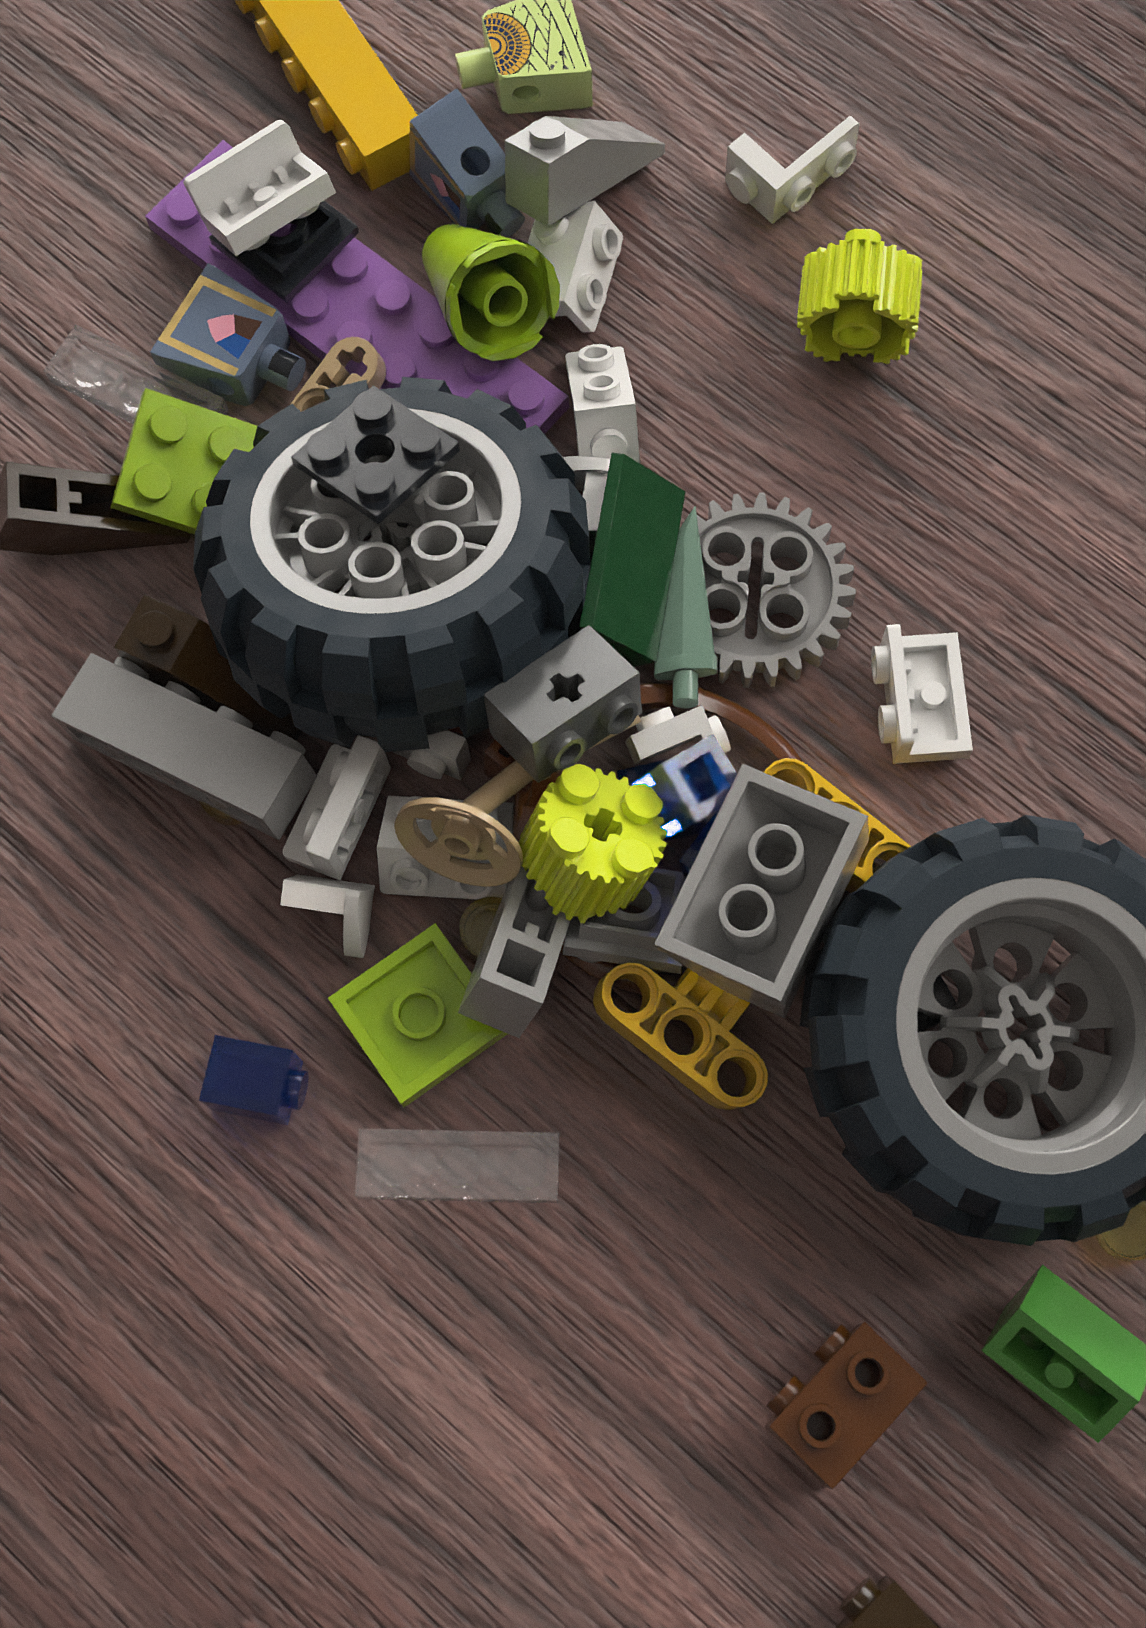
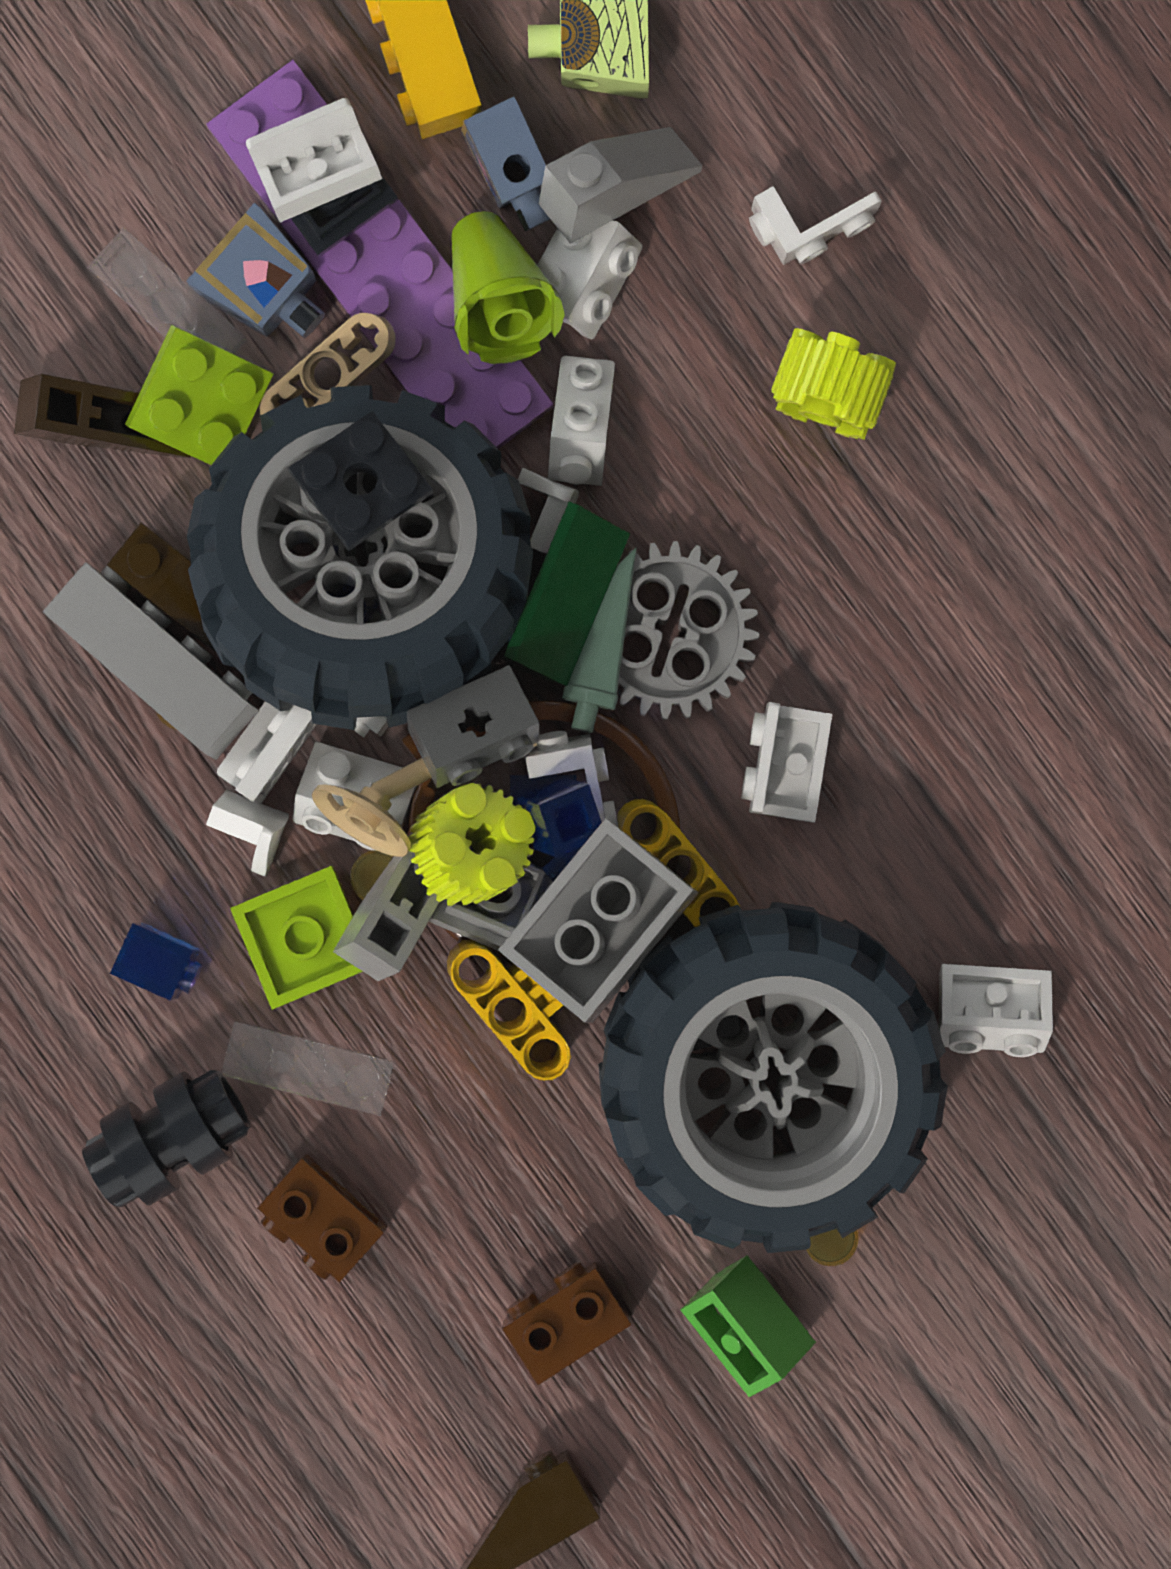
camera: 10 degrees right, 15 degrees up
(278, 1306) = (144, 1151): none -> black piece
(512, 1344) = (320, 1219): none -> reddish brown brick

